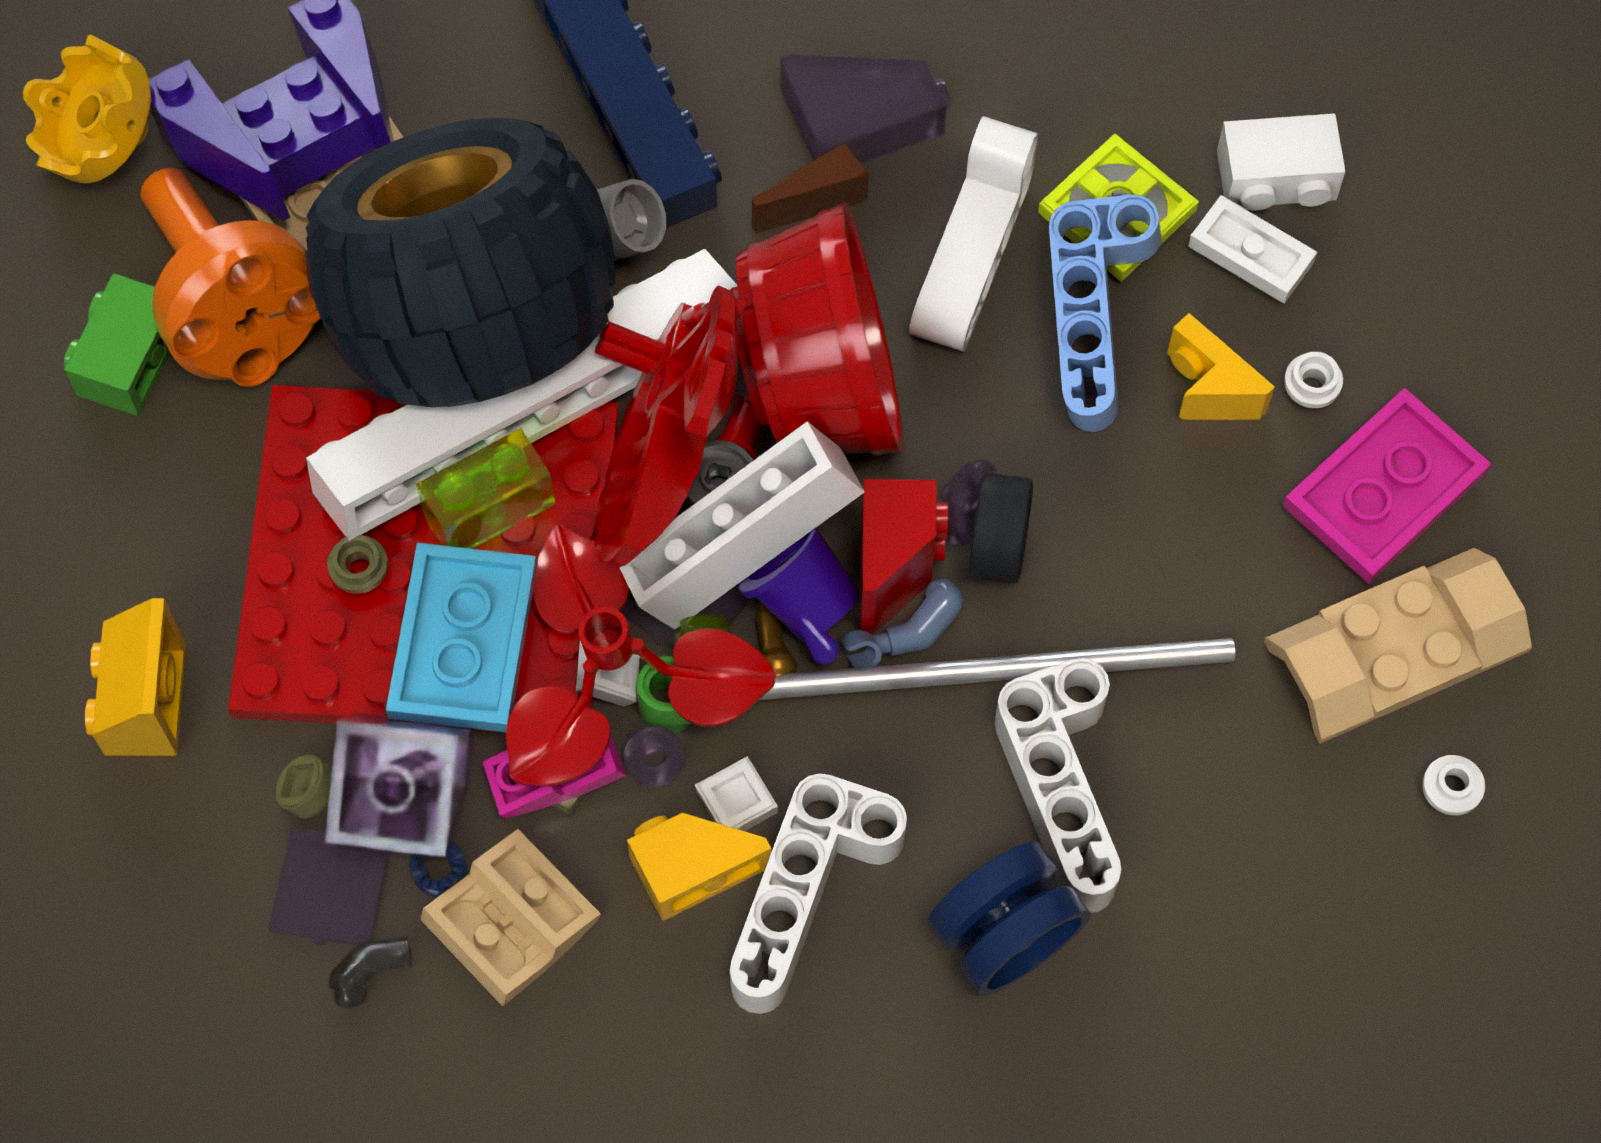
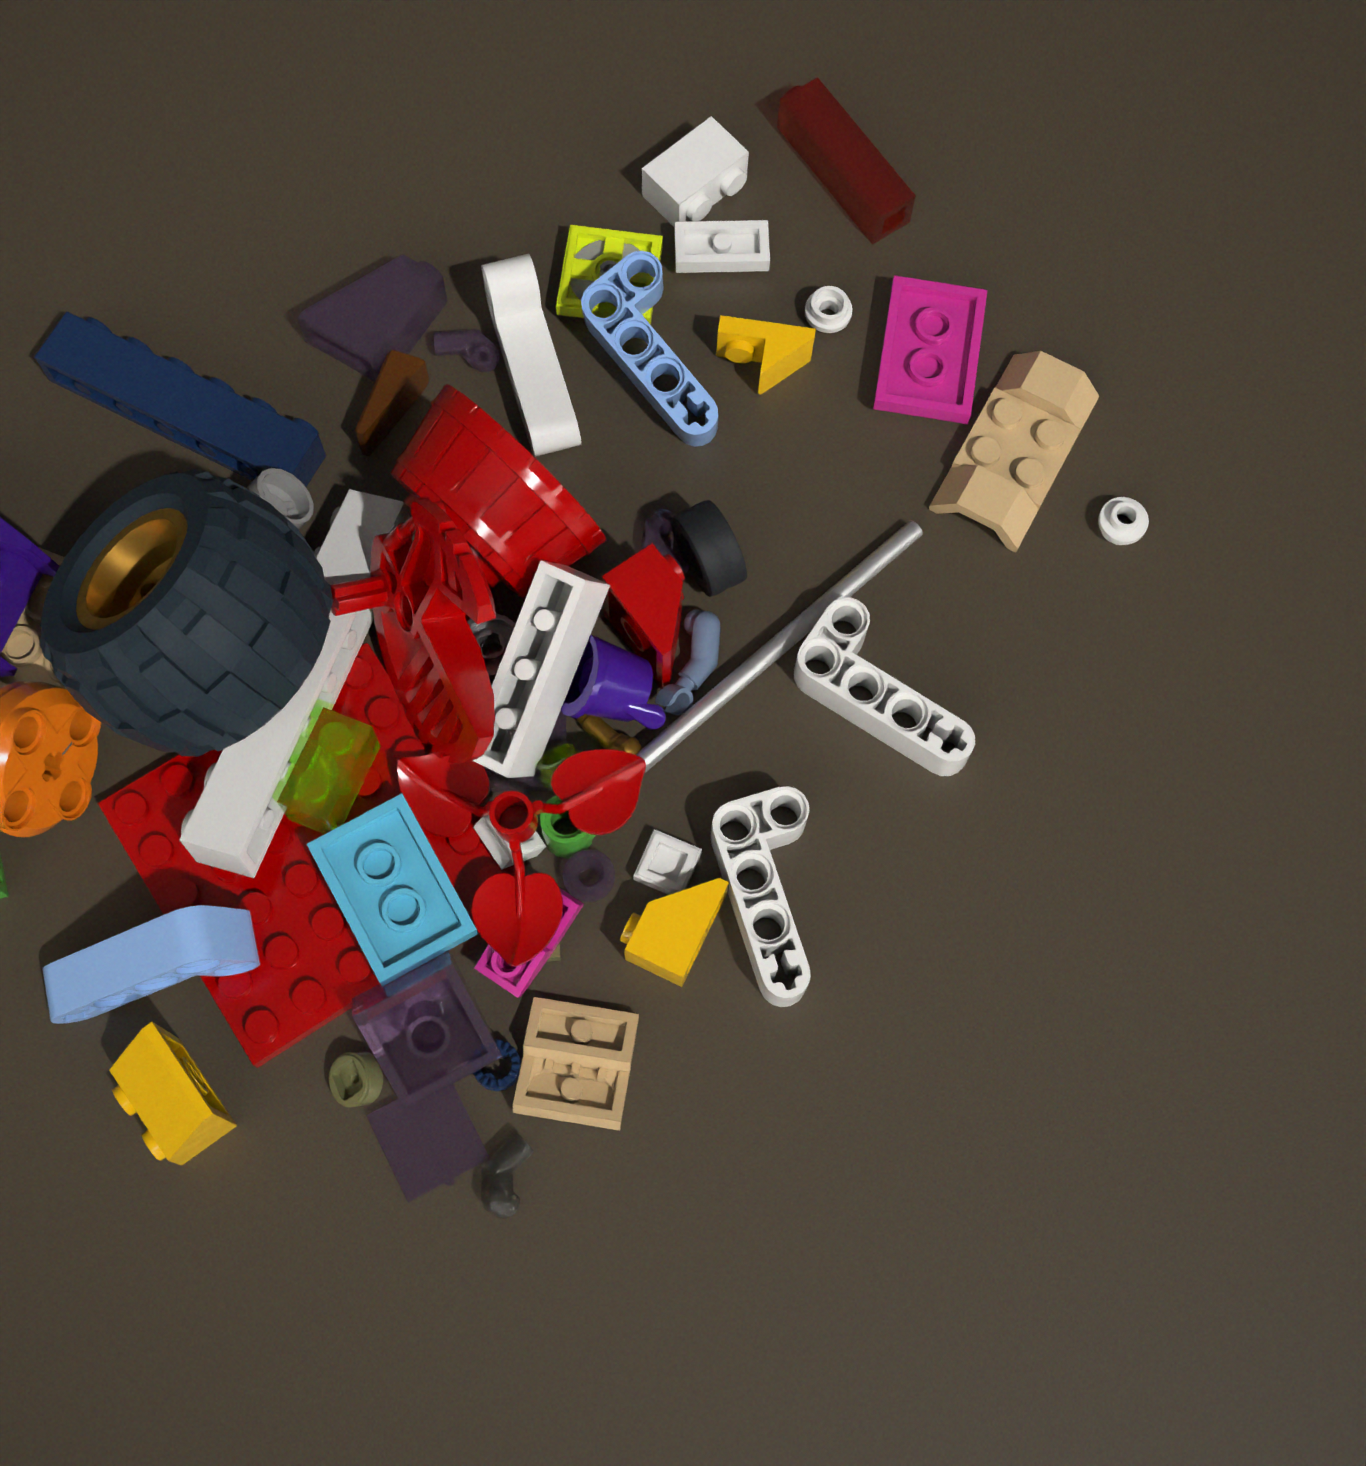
camera: 40 degrees left, 5 degrees up
(210, 550) = (150, 958): none -> light blue beam
(348, 551) = (267, 875): olive plate -> none
(930, 187) = (469, 344): none -> clear purple arm
(1008, 917) = (931, 815): dark blue wheel -> none
(1447, 243) = (845, 160): none -> clear red brick

